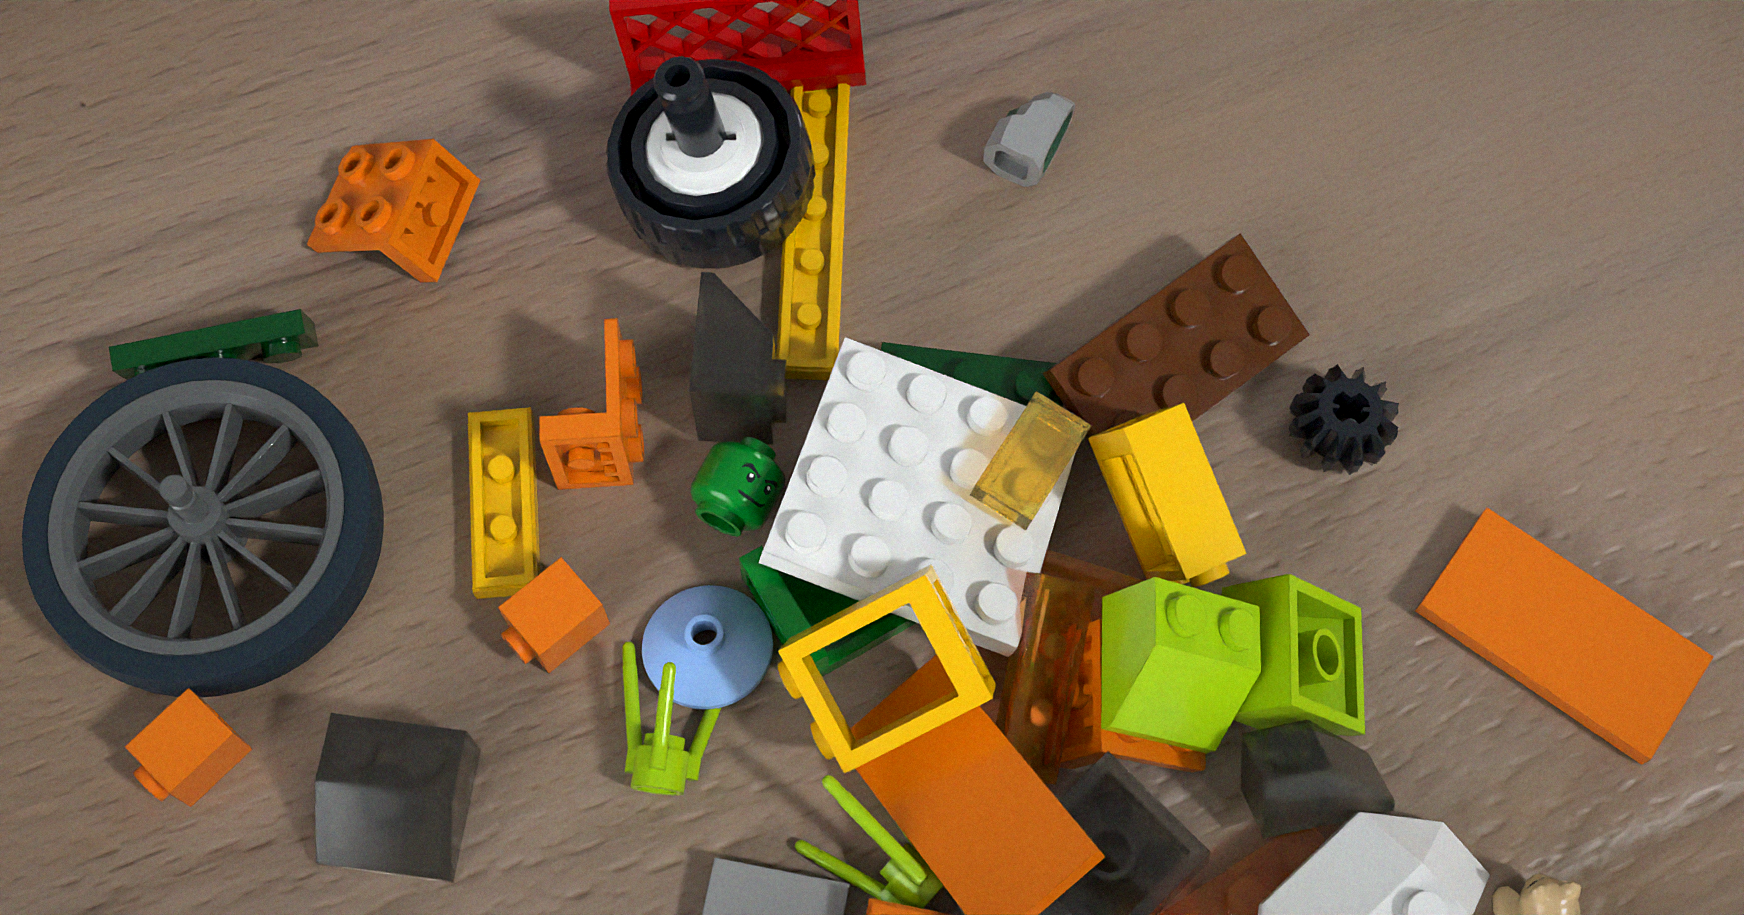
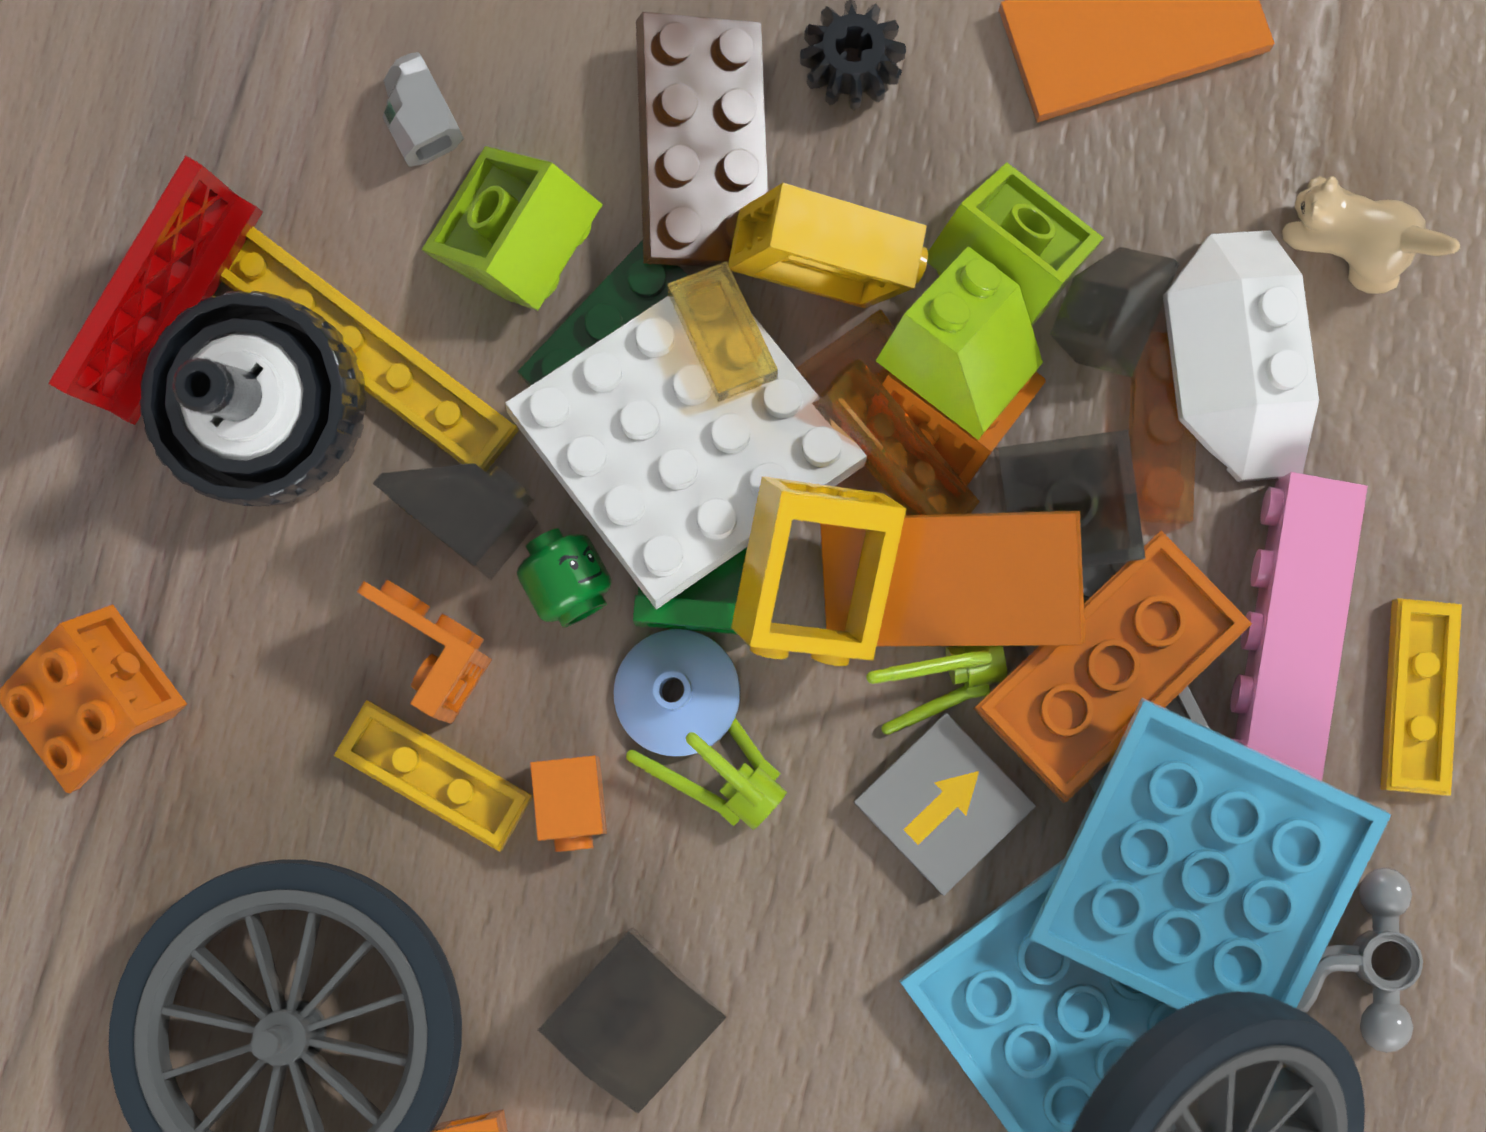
camera: 50 degrees left, 15 degrees up
(270, 337) = (122, 933): dark green plate -> none
(996, 264) = (513, 226): none -> lime slope

